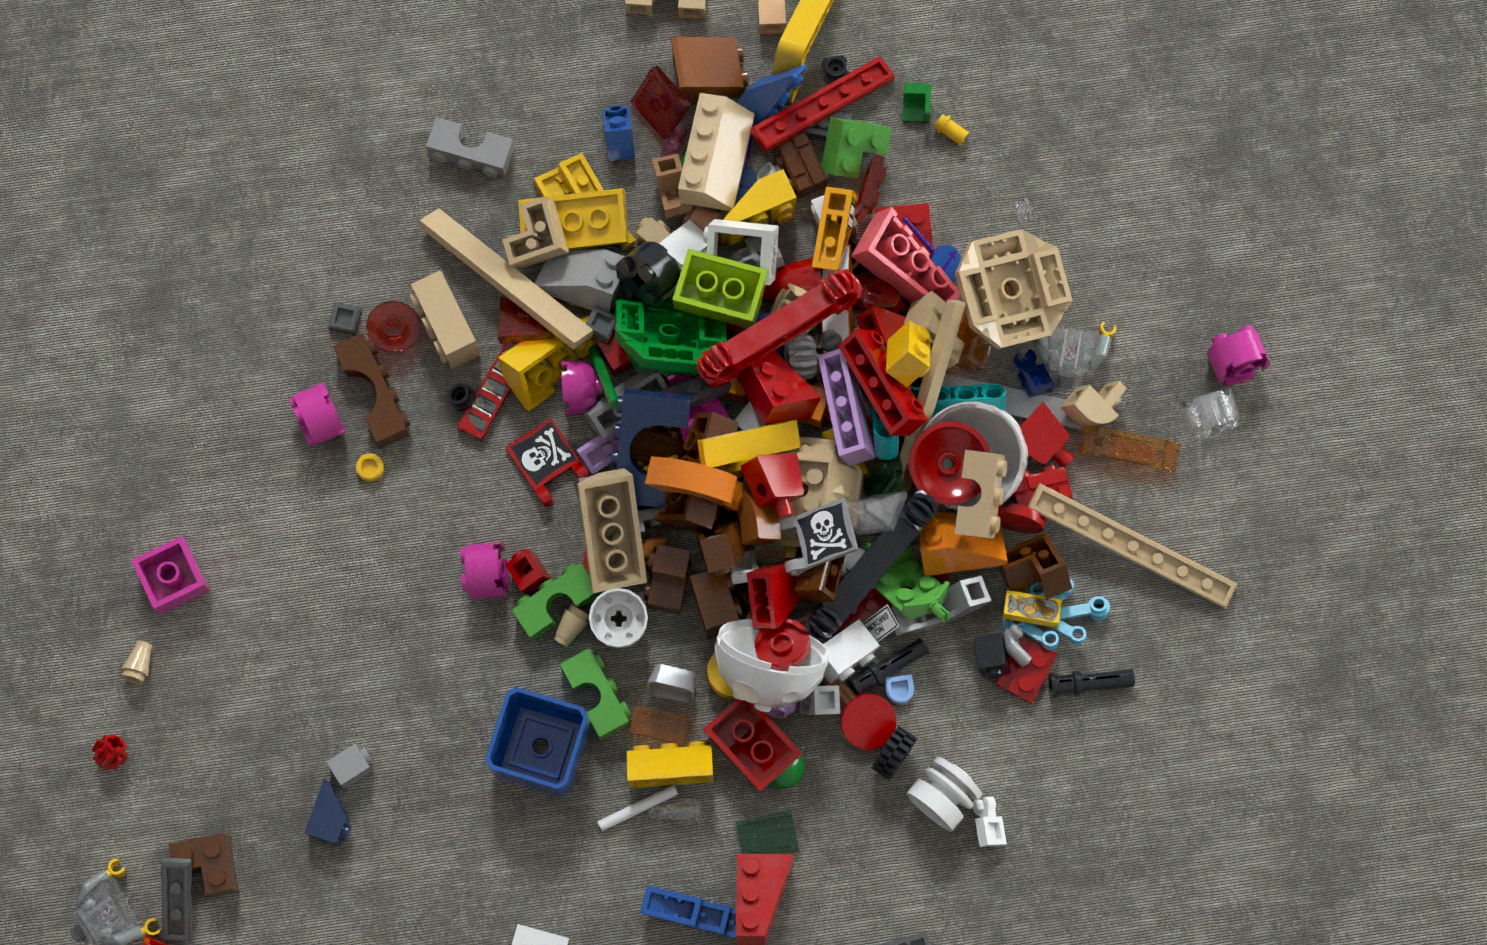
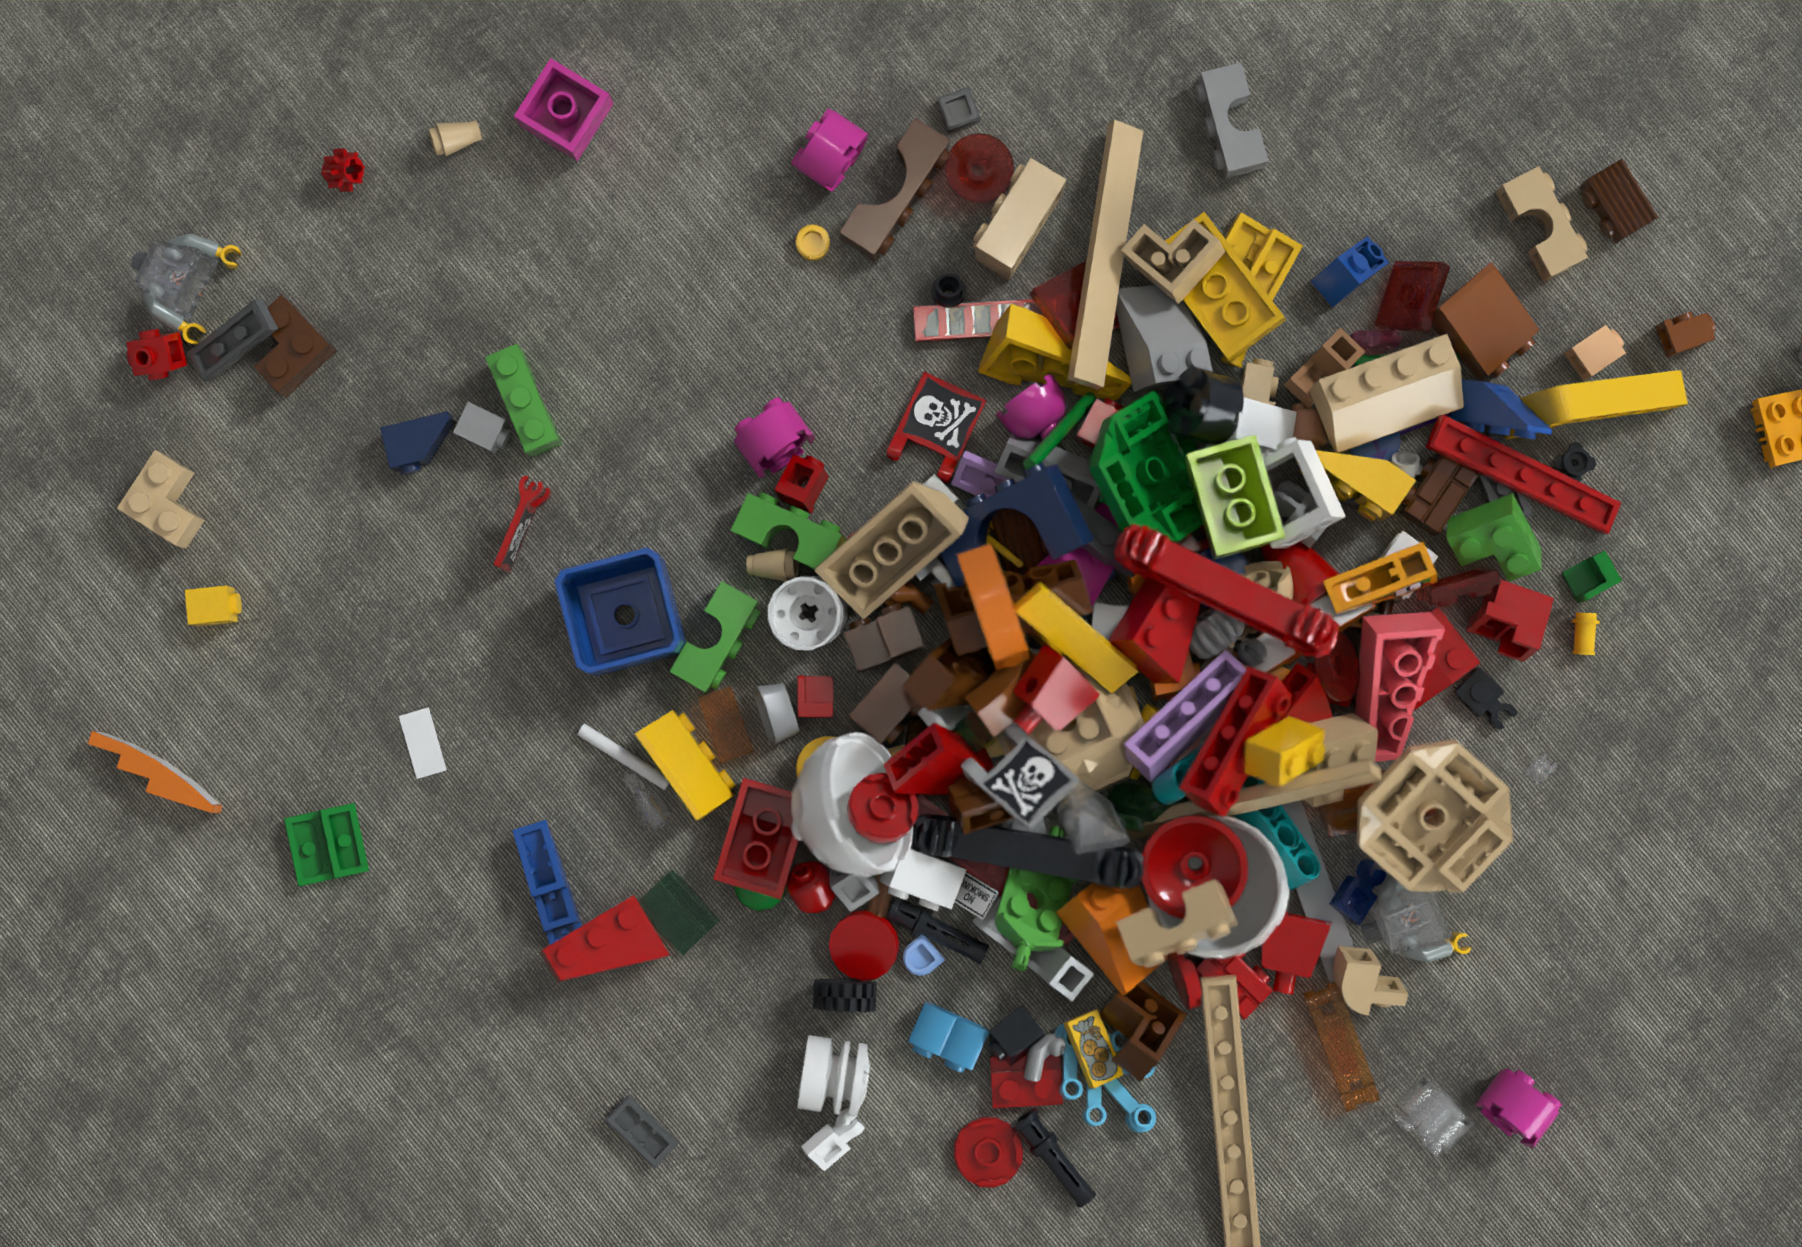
camera: 60 degrees right, 10 degrees up
(349, 723) = (523, 400): none -> bright green arch
(421, 759) = (521, 521): none -> red flag
(601, 323) = (1118, 390): dark grey tile -> none
(679, 652) = (815, 696): none -> red panel
(807, 731) = (810, 887): none -> red head
(913, 166) = (1514, 618): none -> red plate
(944, 256) = (1430, 717): blue piece -> none
(950, 218) = (1482, 695): none -> black plate
(965, 702) = (948, 1036): none -> dark azure brick
(1060, 725) = (988, 1152): none -> red tile

